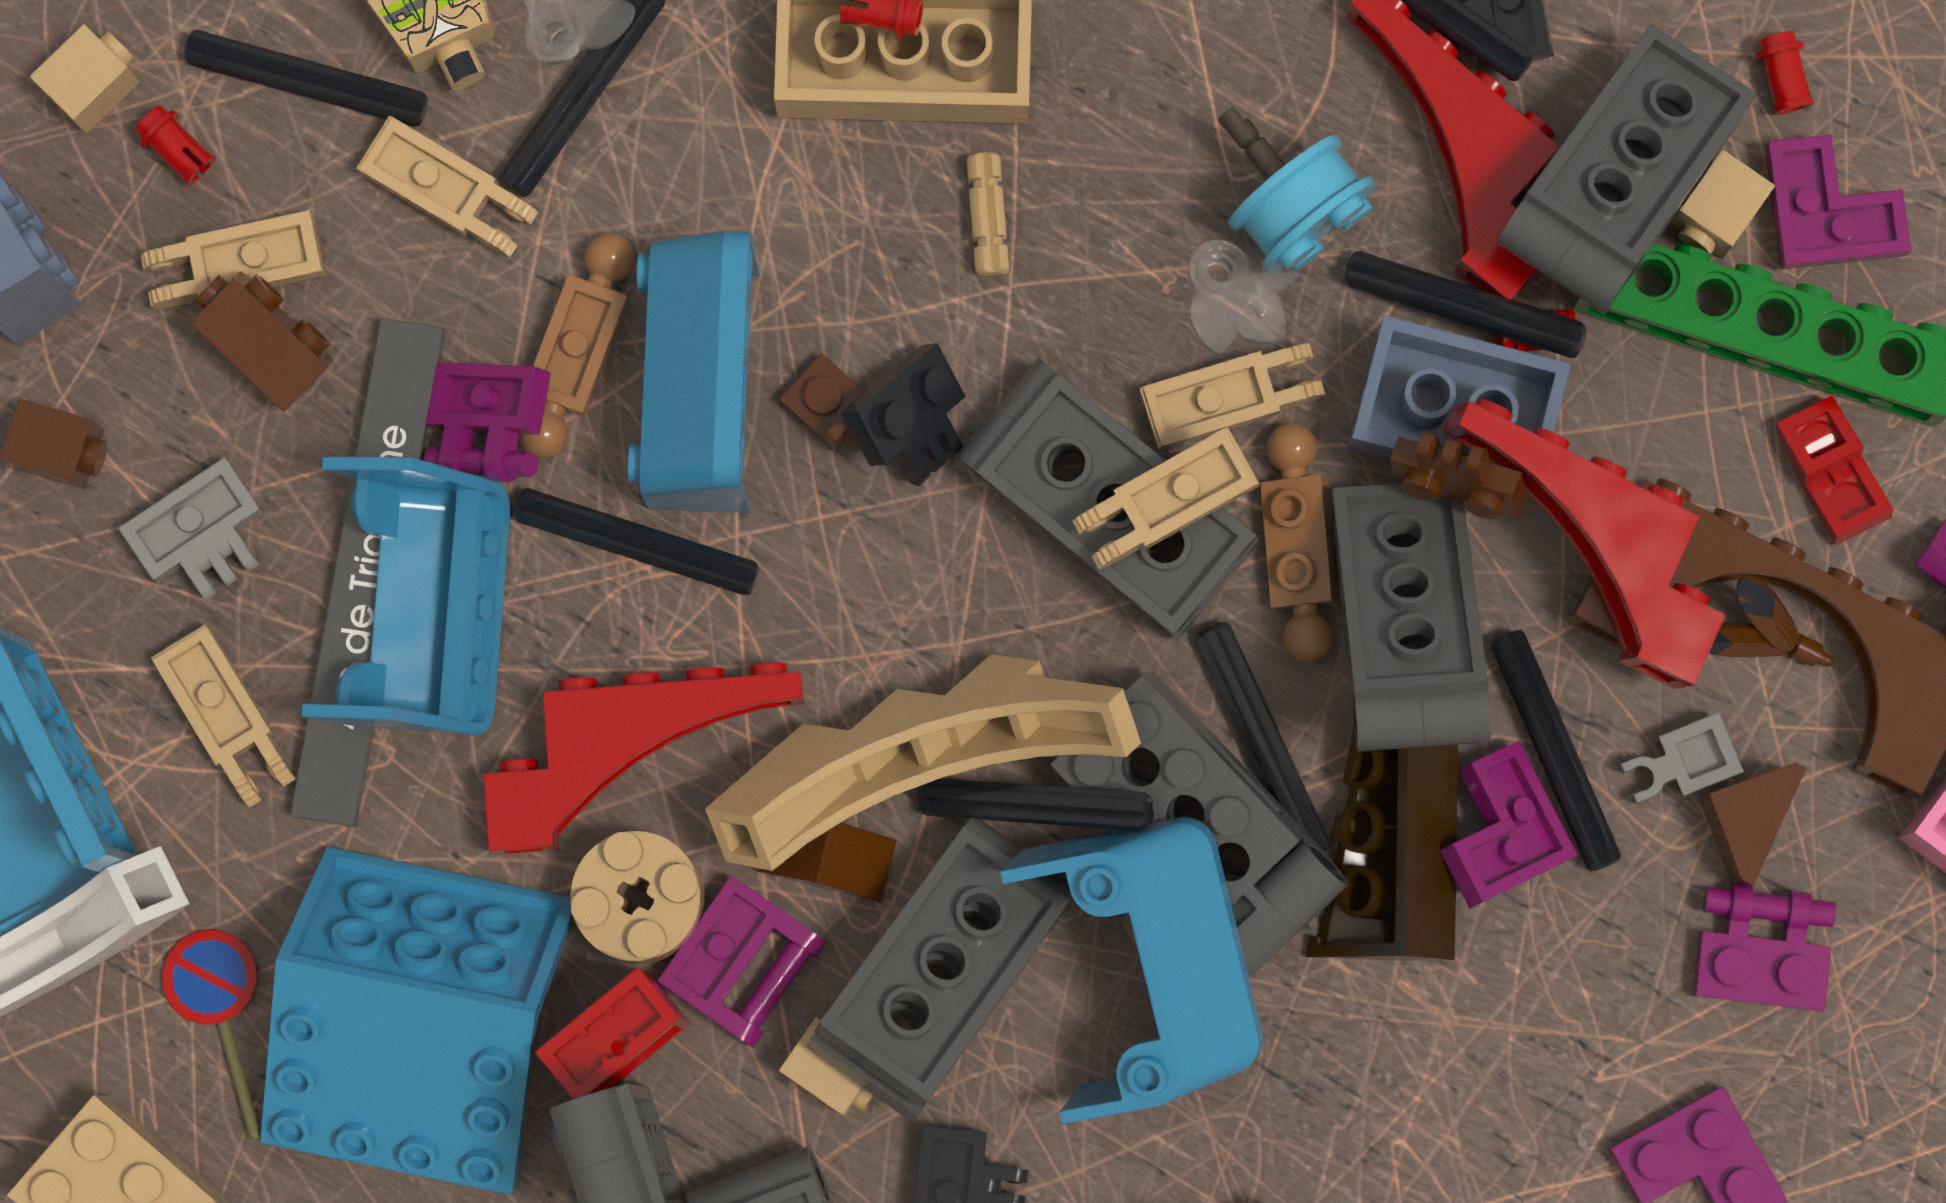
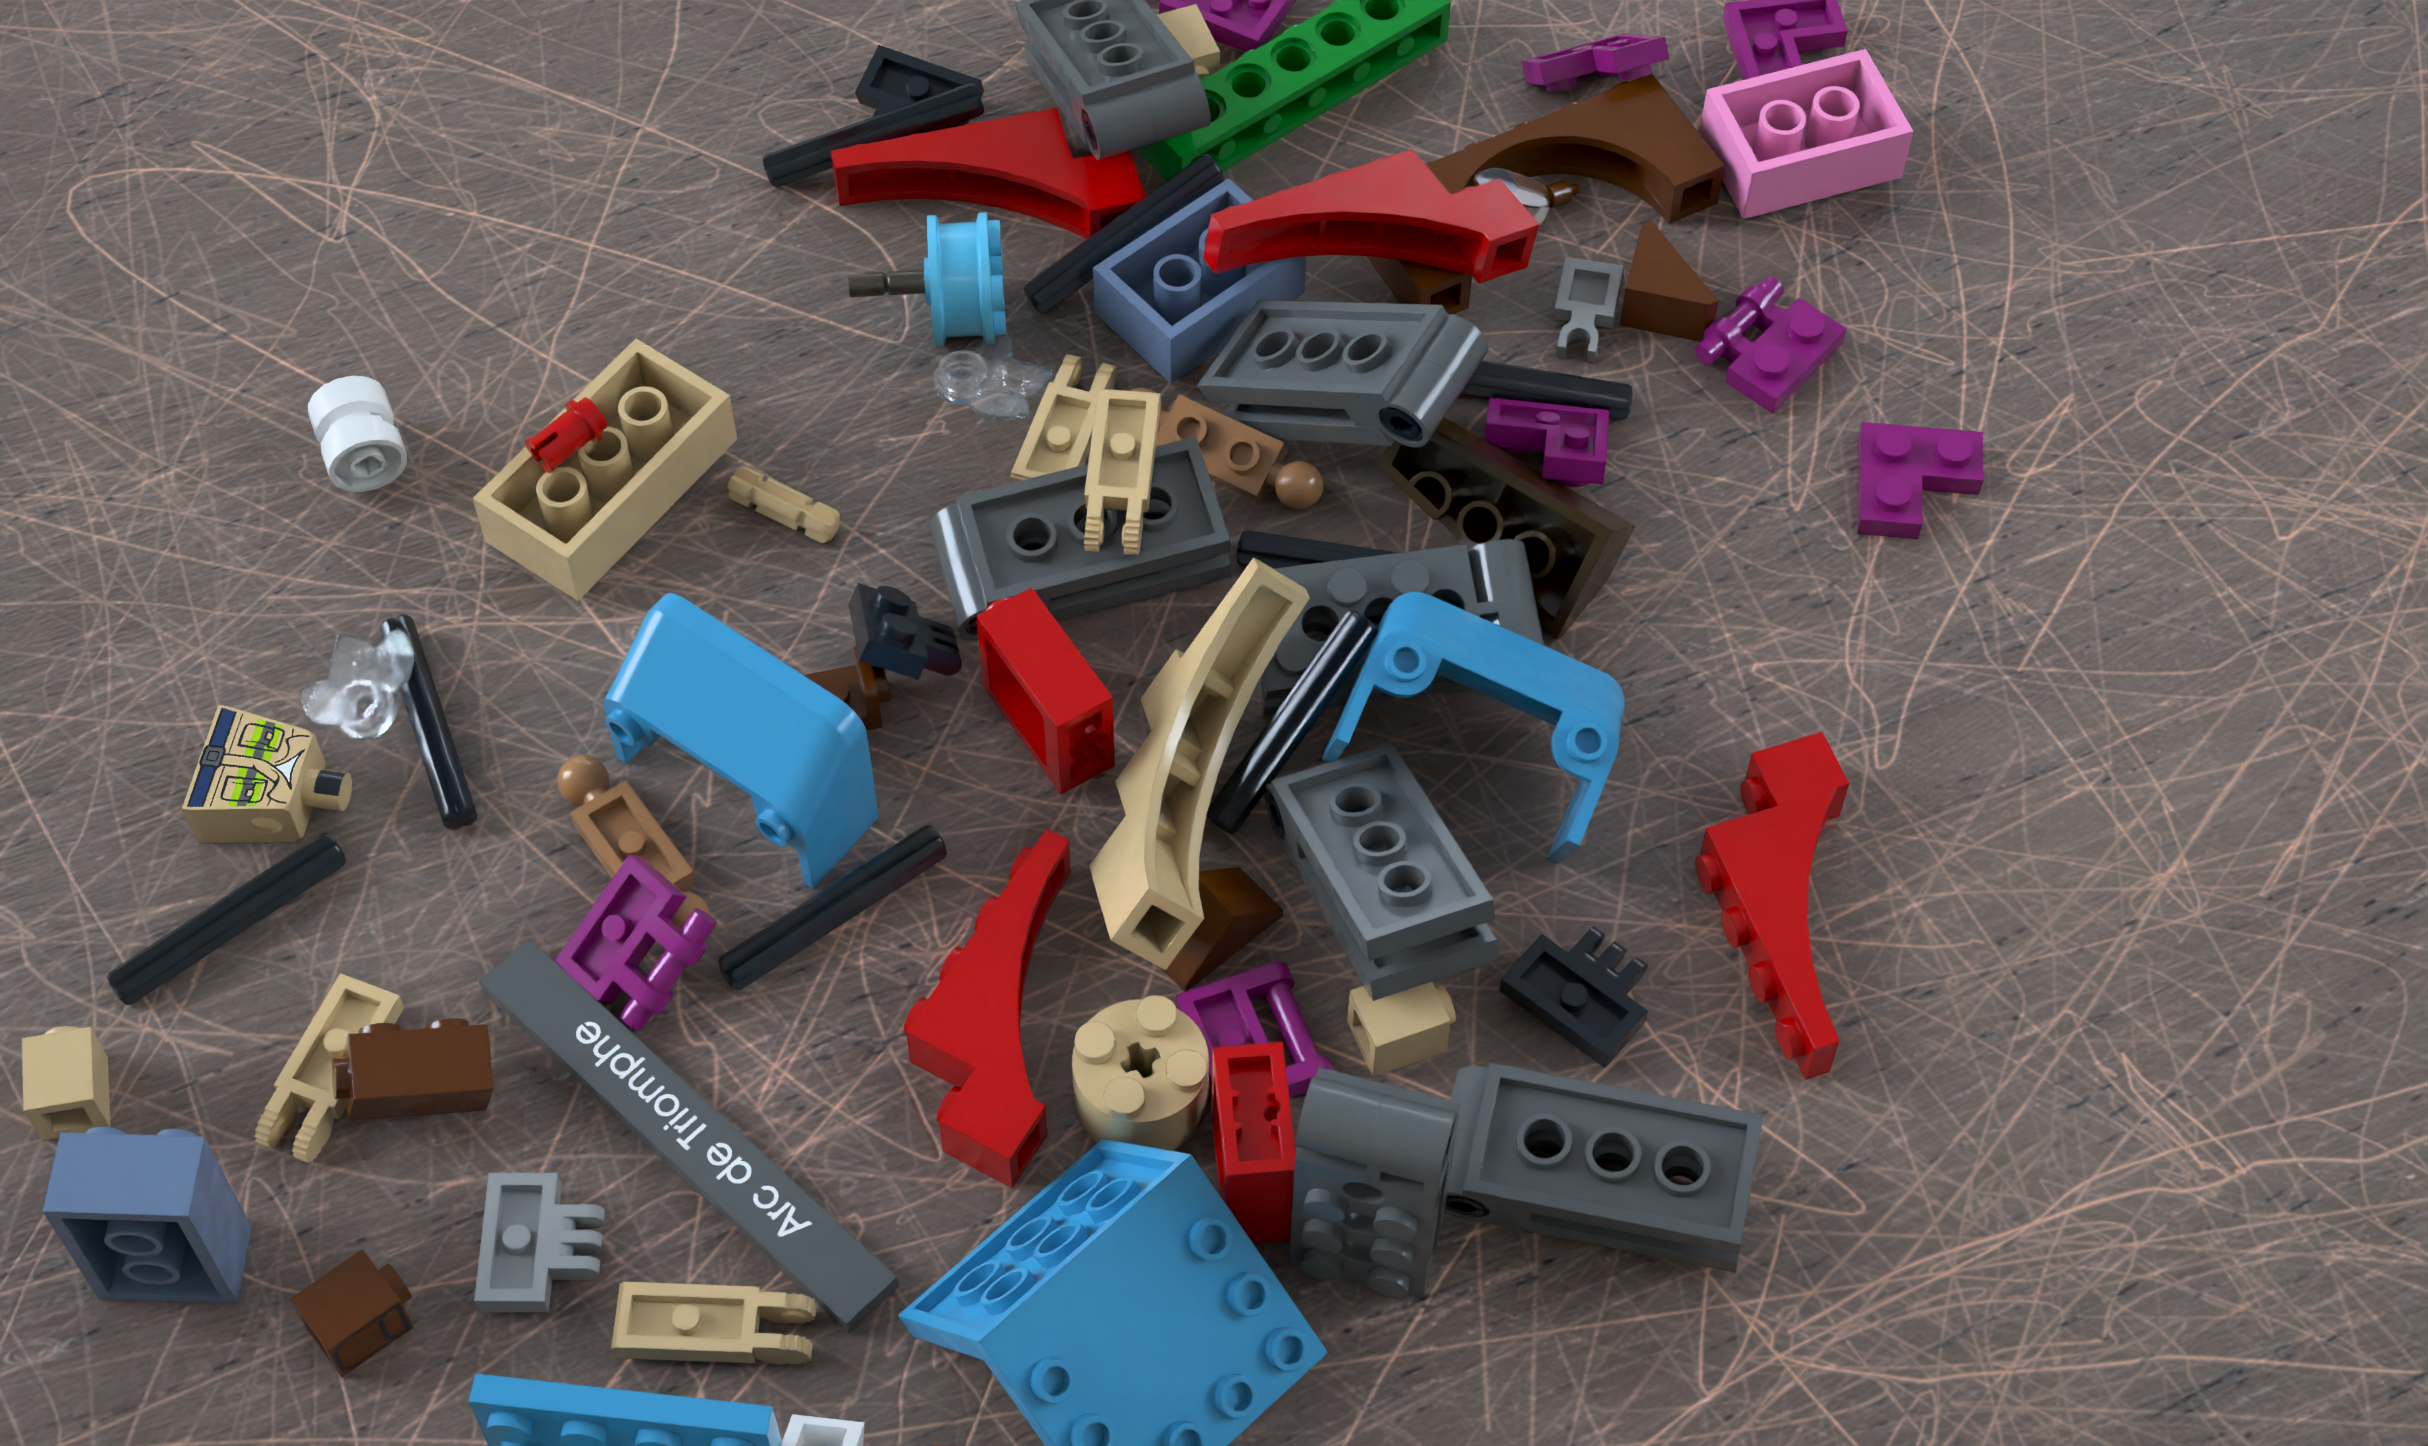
camera: 60 degrees left, 25 degrees down
(173, 144) = (186, 1052): red pin -> none
(433, 599) = (735, 1071): dark azure windscreen -> none
(440, 184) = (415, 865): tan hinge -> none
(930, 575) = (1046, 690): none -> red window
(1447, 472) = (1257, 275): reddish brown hinge -> none
(1833, 470) = (1418, 106): red slope -> none

